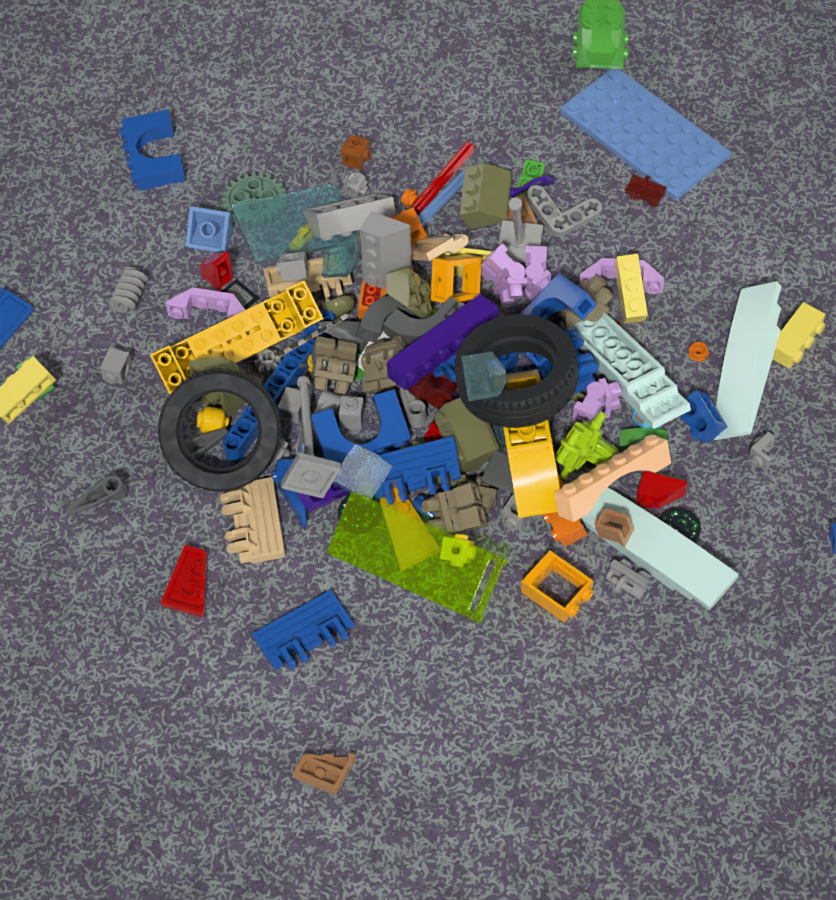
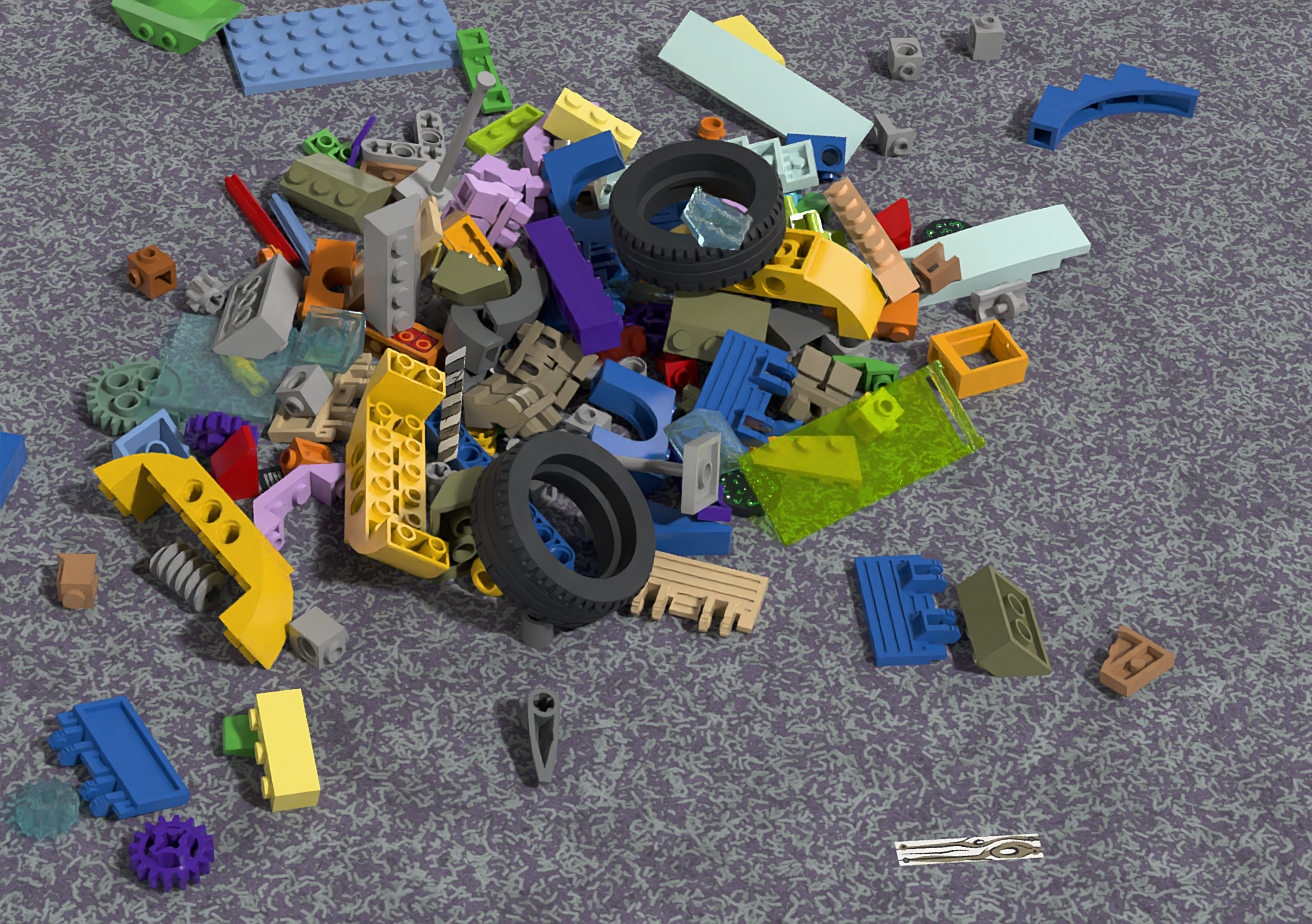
camera: 70 degrees left, 15 degrees down
(99, 247) = (76, 580): none -> medium nougat window
(131, 738) = (968, 849): none -> sticker
(141, 294) = (264, 612): none -> yellow slope
(188, 582) = (755, 698): red wing -> none
(235, 247) = (213, 431): none -> dark purple gear
(250, 294) = (304, 453): none -> orange bracket
(313, 690) = (1002, 626): none -> olive slope
(500, 532) = (874, 372): none -> bright green slope
(614, 247) = (504, 130): none -> lime tile
(646, 190) = (443, 68): clear red hips -> none
(661, 214) = (475, 58): none -> bright green slope

